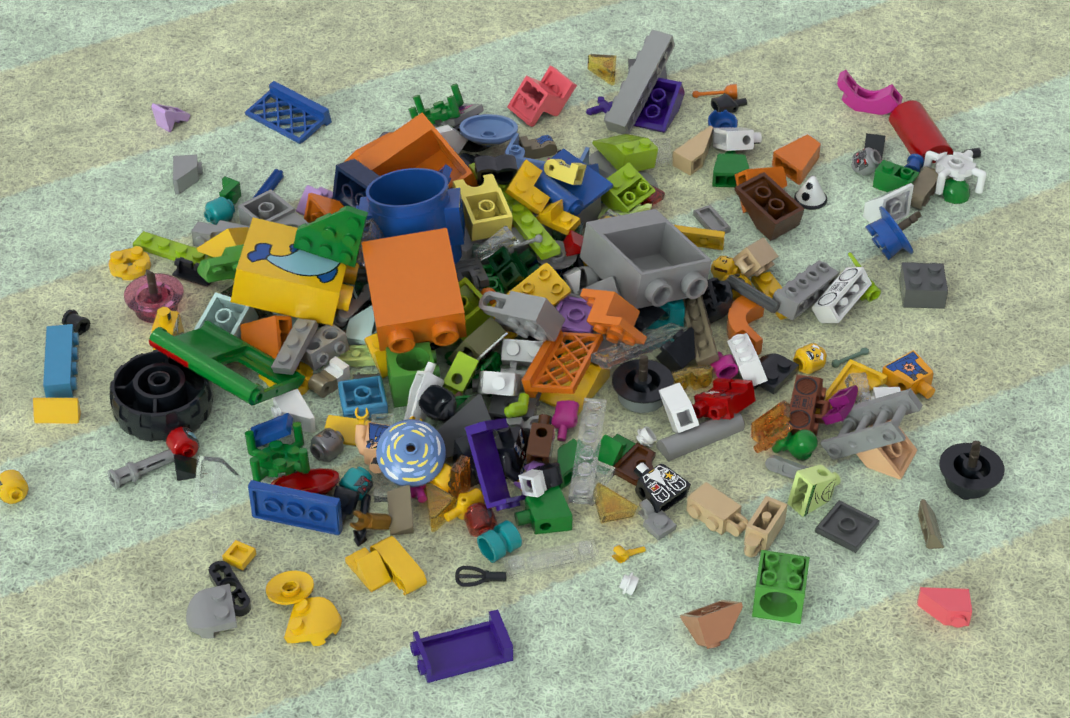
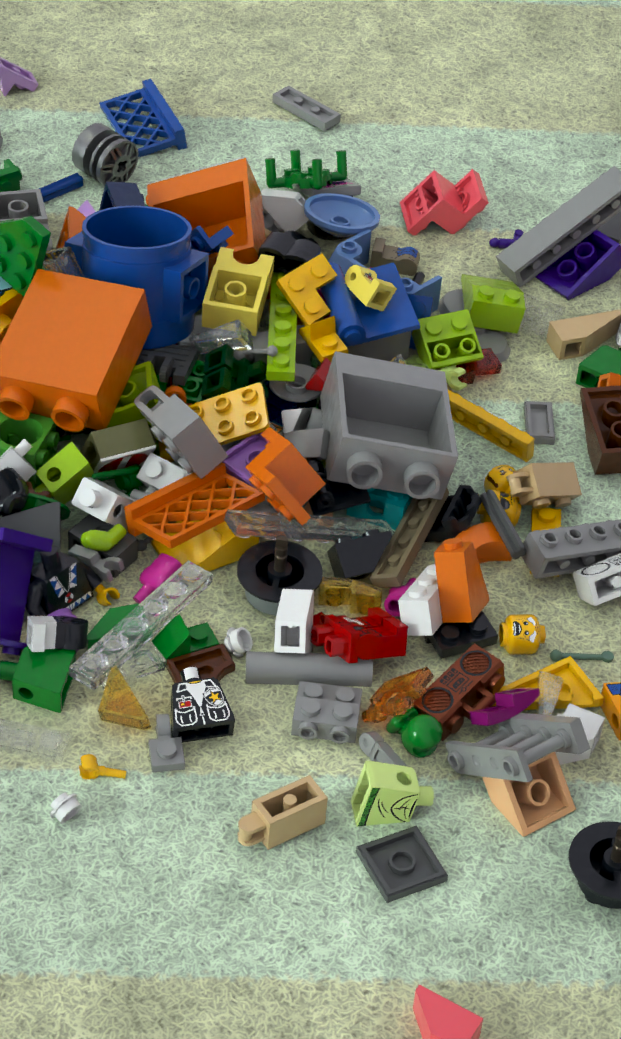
camera: 25 degrees right, 0 degrees up
(290, 148) = (104, 154): none -> flat silver wheel
(391, 63) = (306, 108): none -> light grey plate
(541, 440) = (92, 590): reddish brown torso -> none
(603, 66) = (551, 195): clear yellow slope -> none
(712, 622) = (121, 901): nougat slope -> none
(716, 510) = (244, 764): tan brick -> none
(733, 456) = (326, 712): none -> light grey plate
(762, 339) = (459, 581): none -> orange slope
(780, 586) = (237, 897): bright green brick -> none
(929, 526) = (510, 914): dark tan slope -> none

